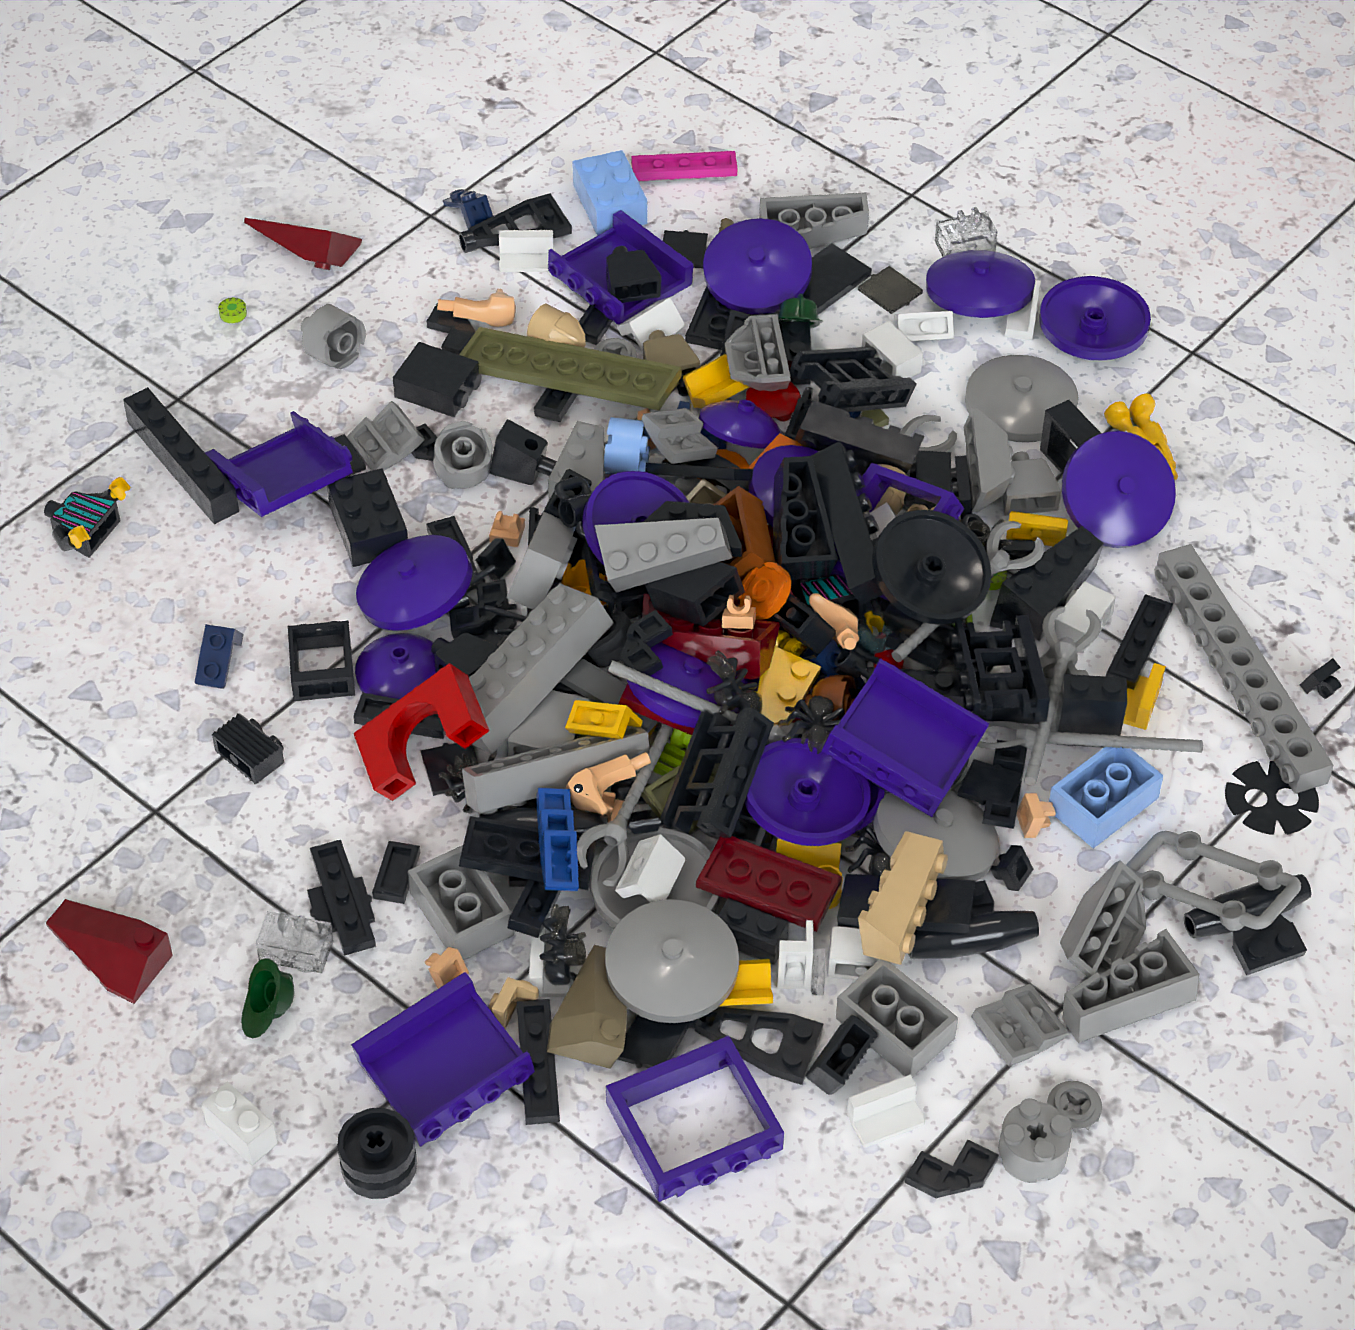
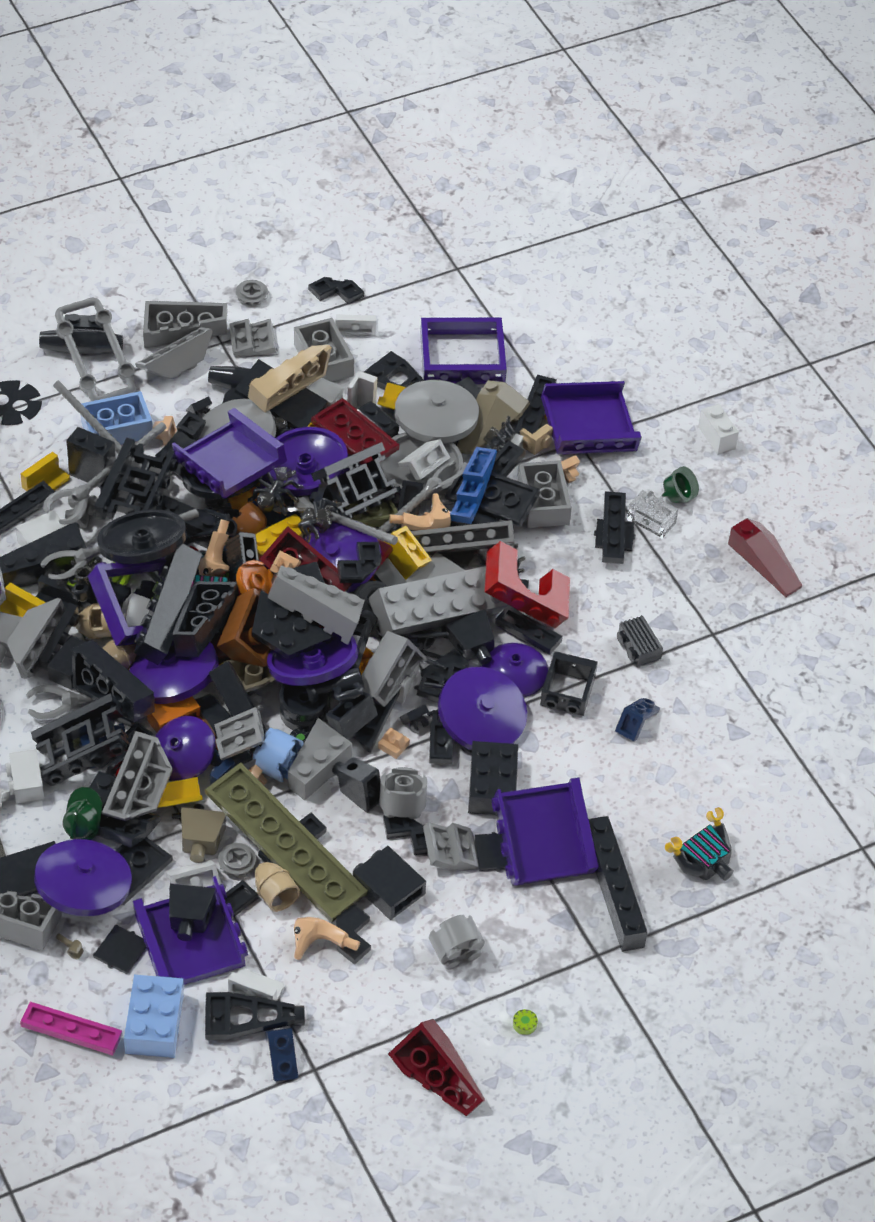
camera: 160 degrees left, 0 degrees up
(377, 1153) = (646, 387): black wheel -> none
(392, 878) = (572, 540): black tile -> none
(841, 1055) = (367, 344): black brick -> none
(1034, 1141) = (287, 277): light grey brick -> none

